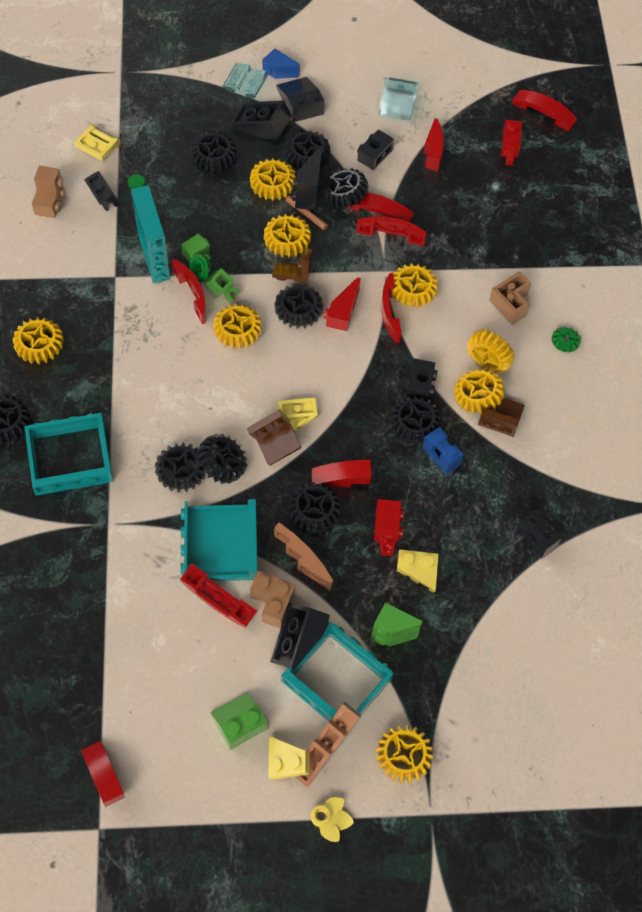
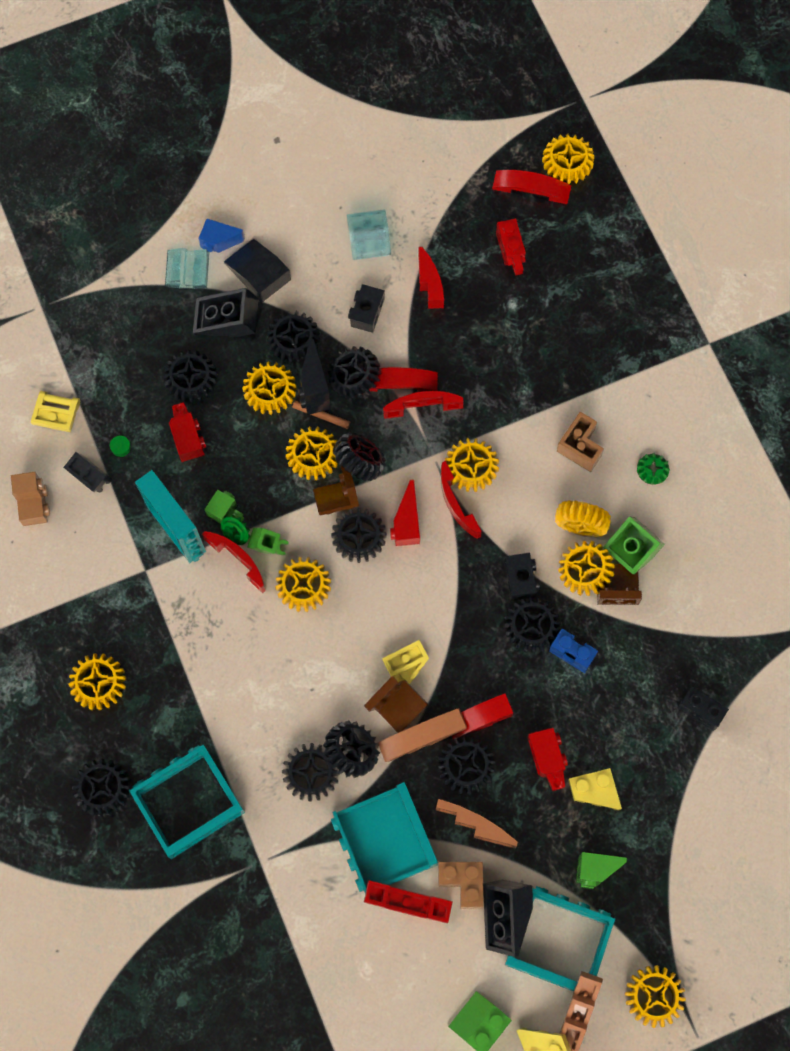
camera: 15 degrees left, 10 degrees up
(191, 190) = (185, 433): none -> red hinge
(290, 471) = (422, 735): none -> nougat slope
(323, 246) = (359, 456): none -> black gear
(527, 387) = (633, 545): none -> bright green slope
(591, 97) = (577, 152): none -> yellow gear

